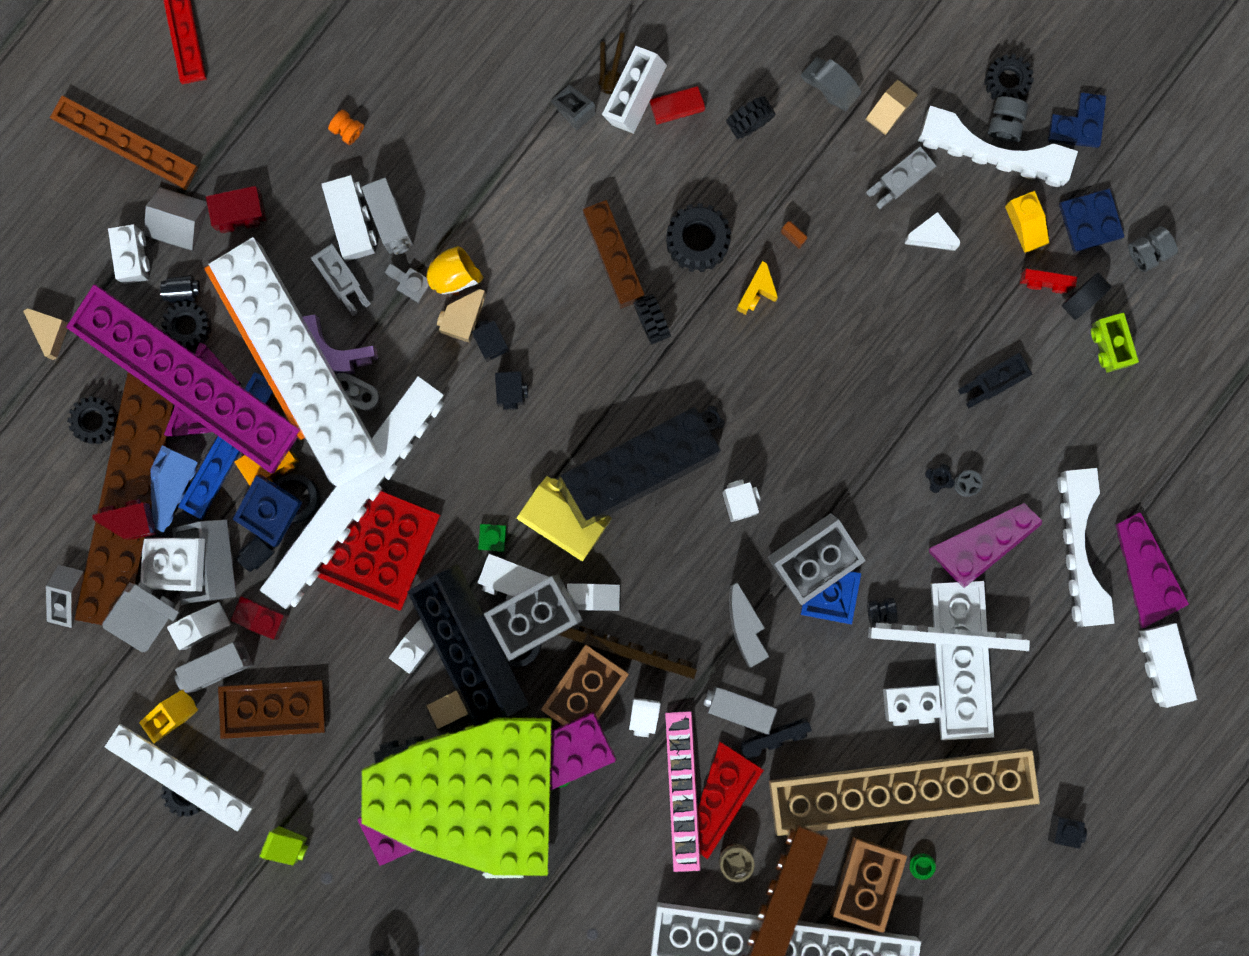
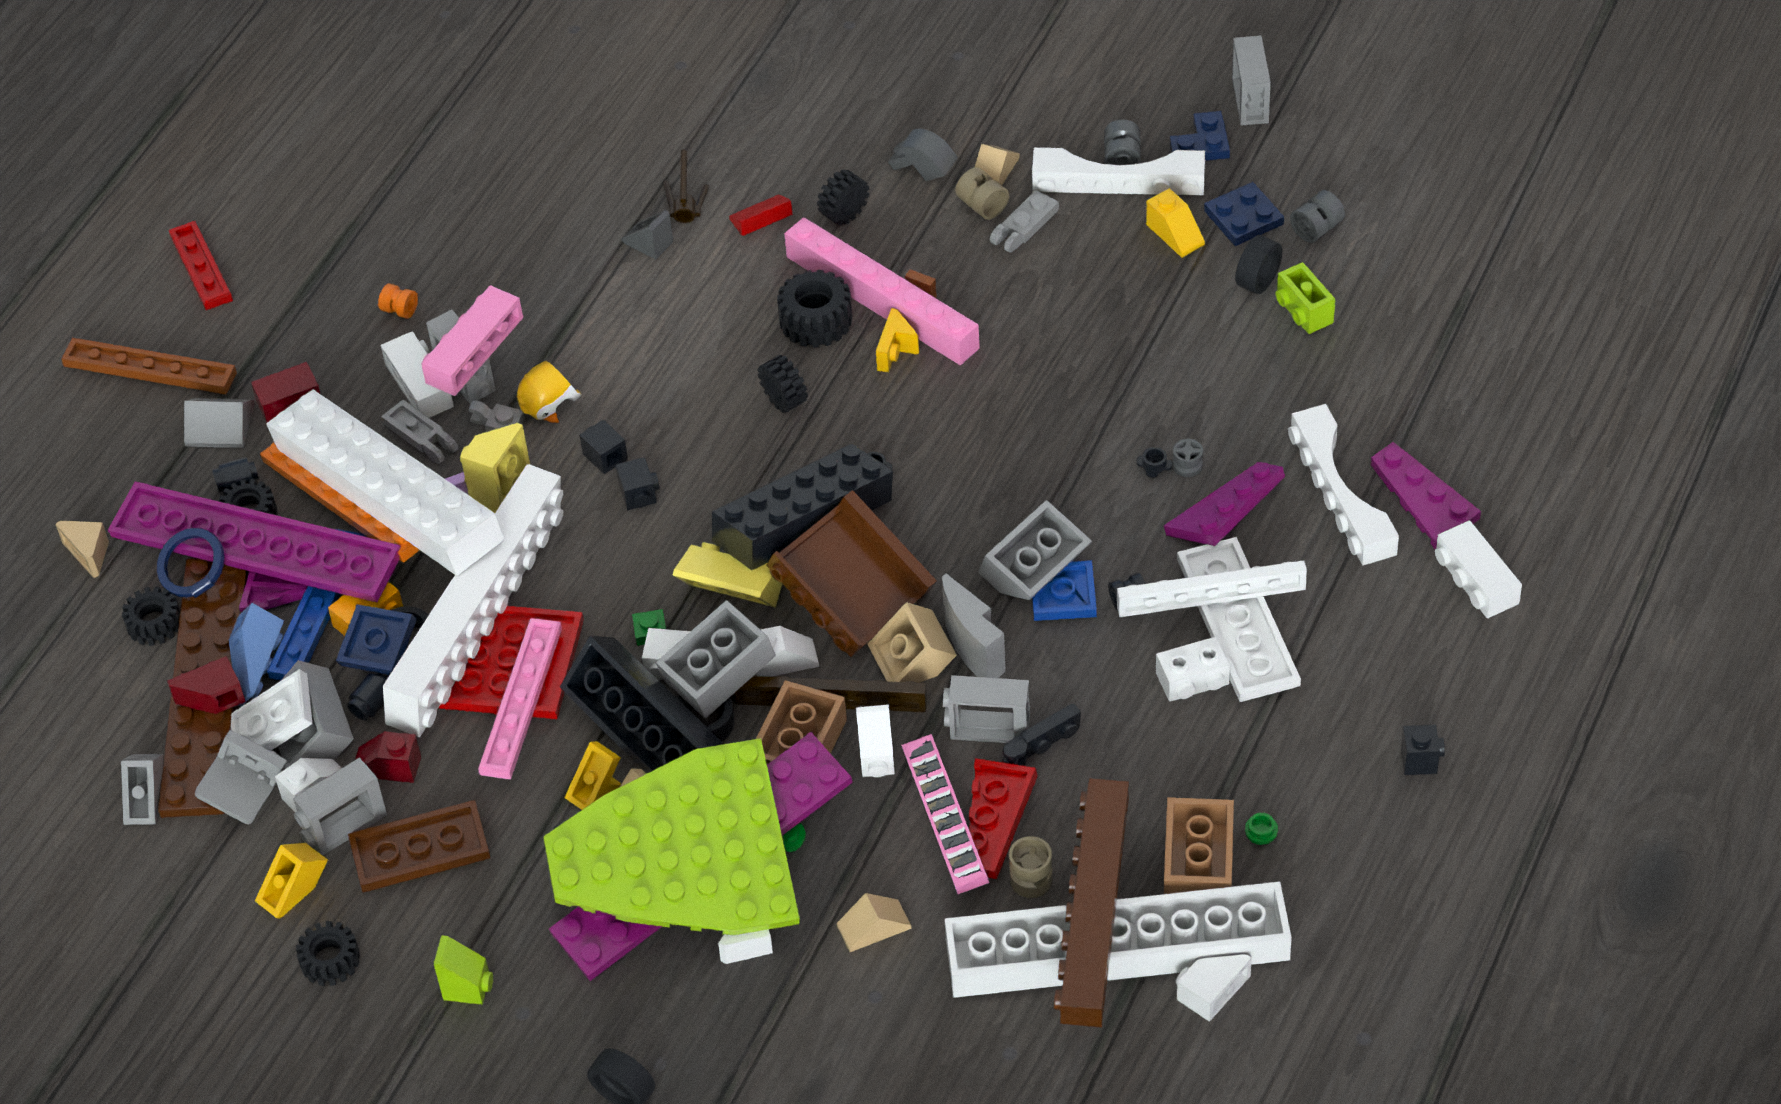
camera: 10 degrees left, 35 degrees down
(128, 254) = (170, 456): white brick -> none
(150, 380) = (205, 583): none -> dark blue piece
(179, 777) = (316, 927): white plate -> none
(374, 593) = (520, 699): none -> bright pink tile
(393, 365) = (494, 464): none -> light yellow slope
(395, 227) = (472, 340): none -> bright pink brick
(412, 648) = (573, 742): white slope -> none
(417, 685) = (593, 776): none -> yellow slope
(462, 316) = (562, 431): tan slope -> none
(606, 872) = (871, 921): none -> tan slope
(613, 254) = (722, 341): reddish brown brick -> none
(634, 89) = (709, 202): white brick -> none
(660, 546) = (851, 573): none -> reddish brown panel
(695, 621) = (912, 646): none -> tan slope
(741, 500) = (930, 518): white brick -> none
(759, 230) = (883, 289): none -> bright pink brick
(879, 147) = (982, 193): none -> dark tan wheel
(904, 791) = (1219, 745): tan brick -> none
(934, 234) = (1074, 255): white slope -> none
(998, 379) = (1187, 363): black hinge -> none
(1012, 64) = (1106, 108): black tyre -> none
(1038, 279) = (1211, 266): red plate -> none
(1142, 75) = (1251, 80): none -> light grey window

